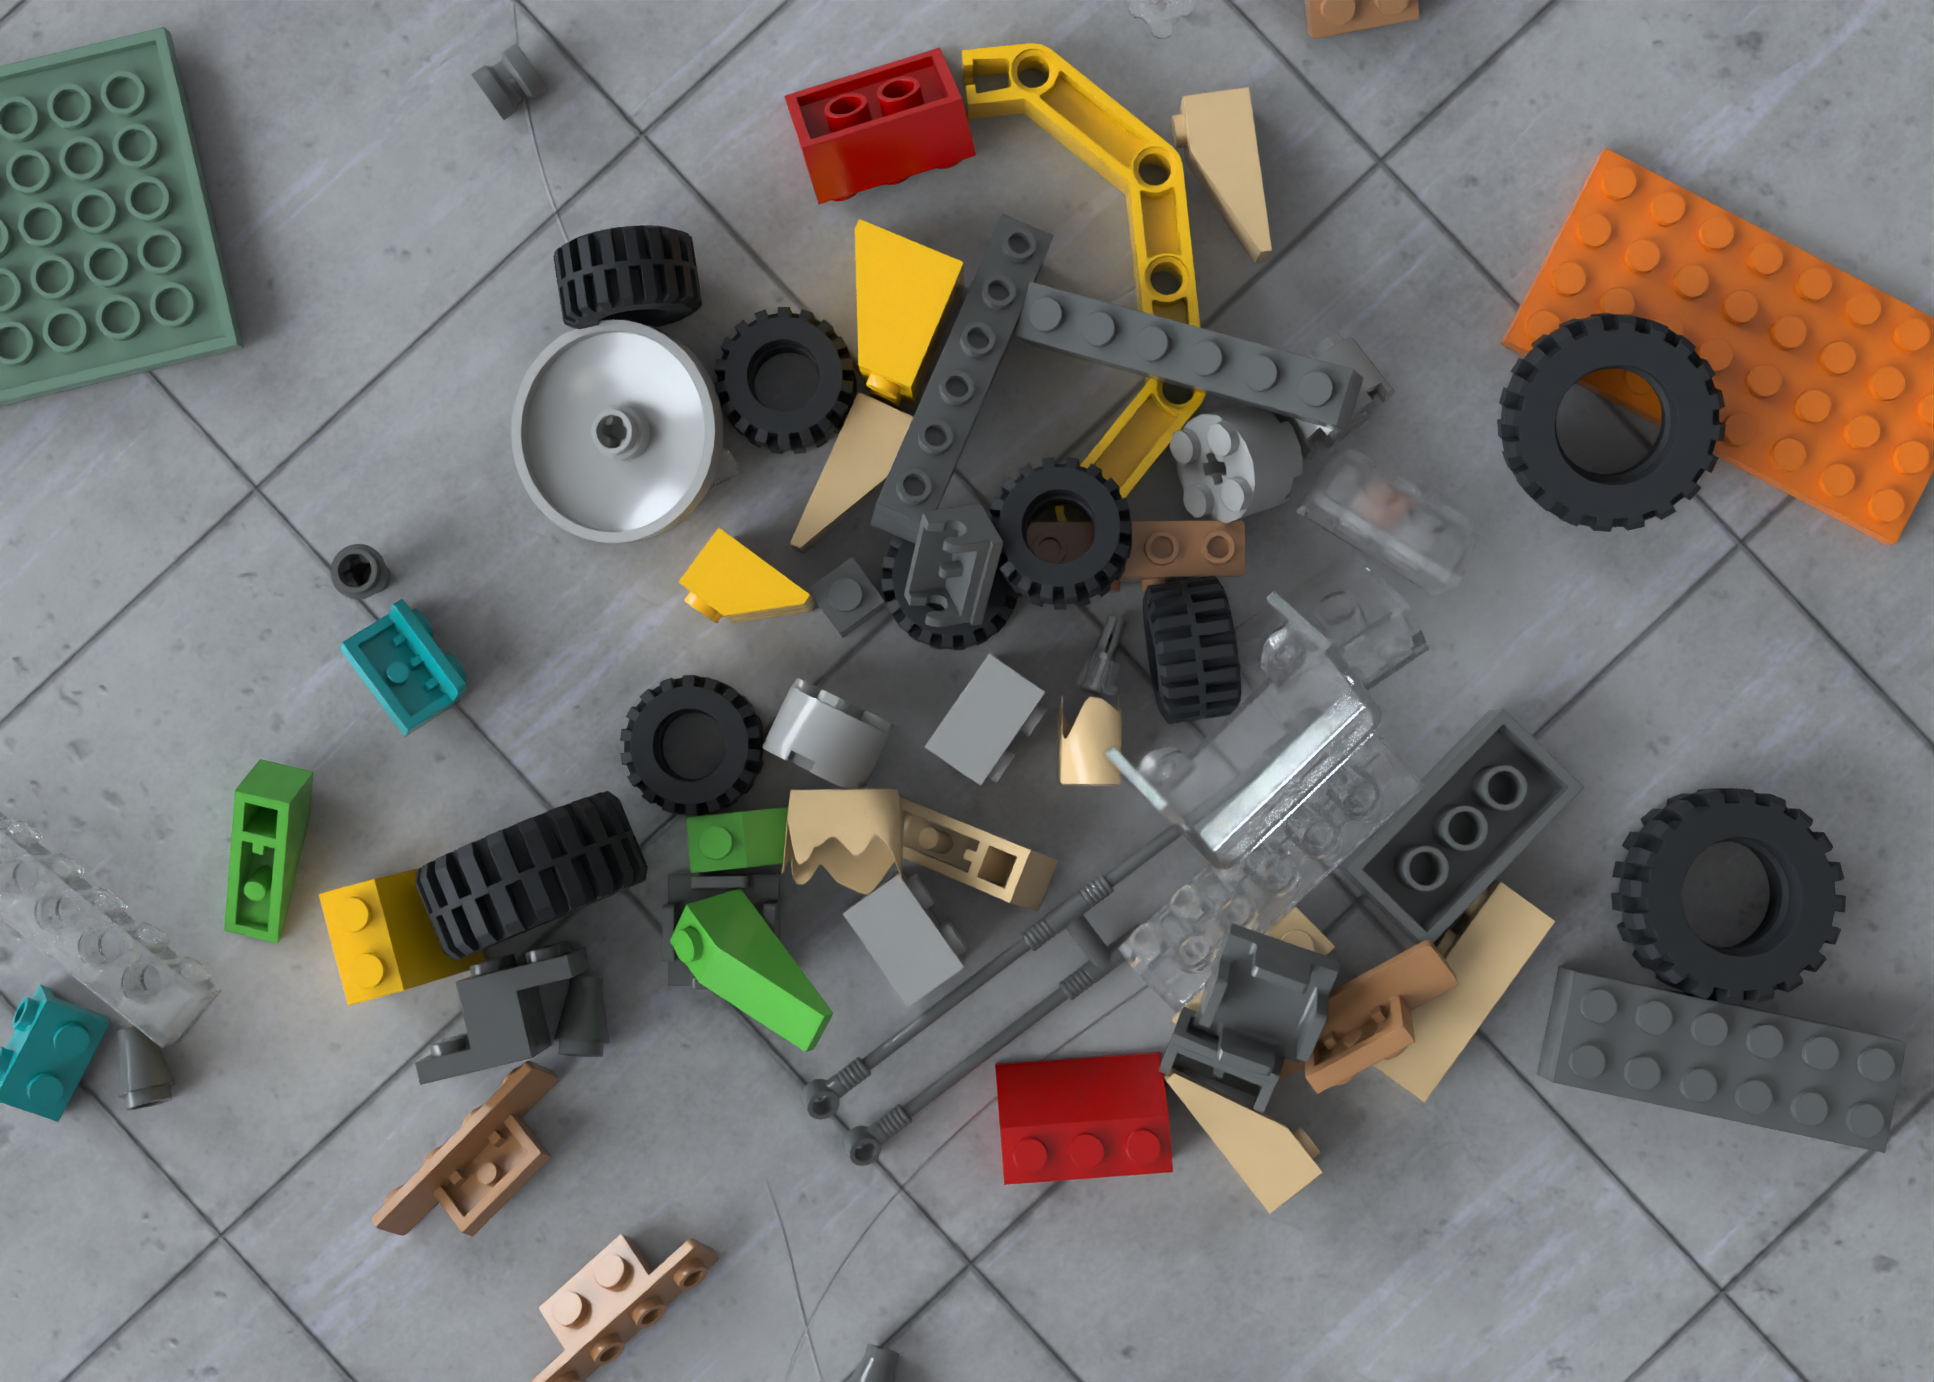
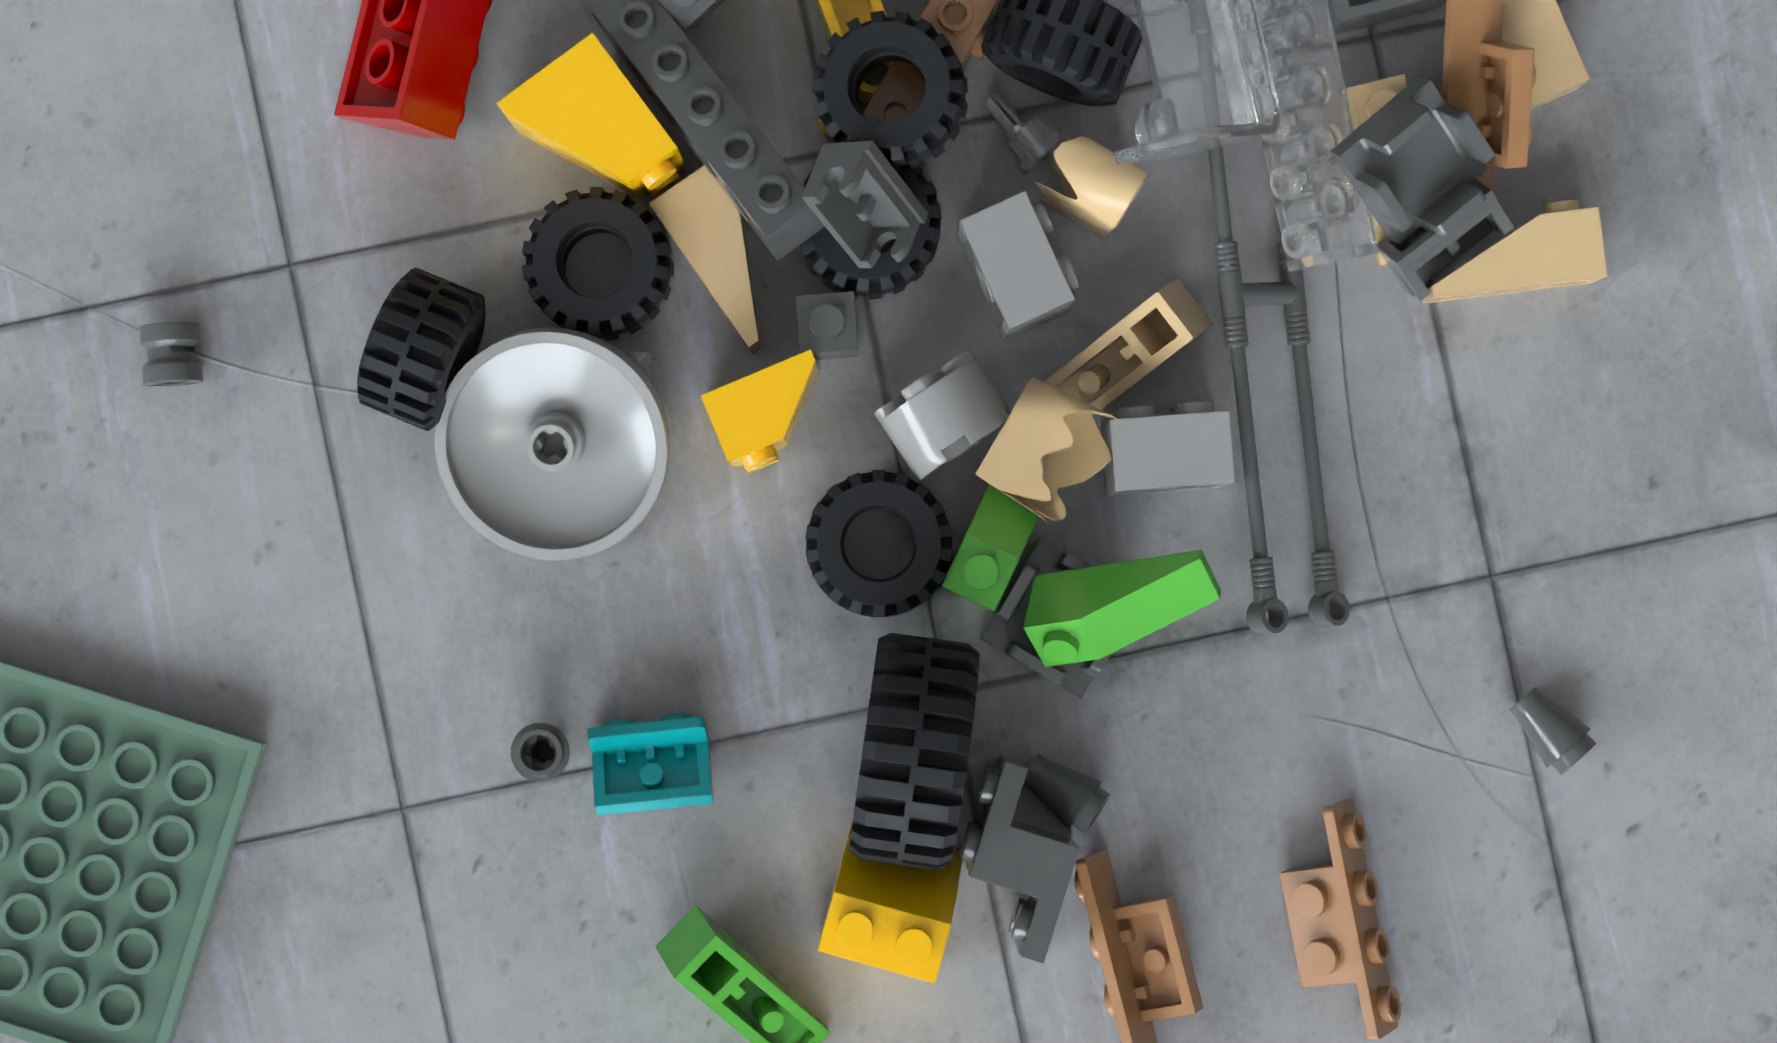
camera: 65 degrees left, 0 degrees up
(1083, 1118) = (1422, 394): red slope -> none

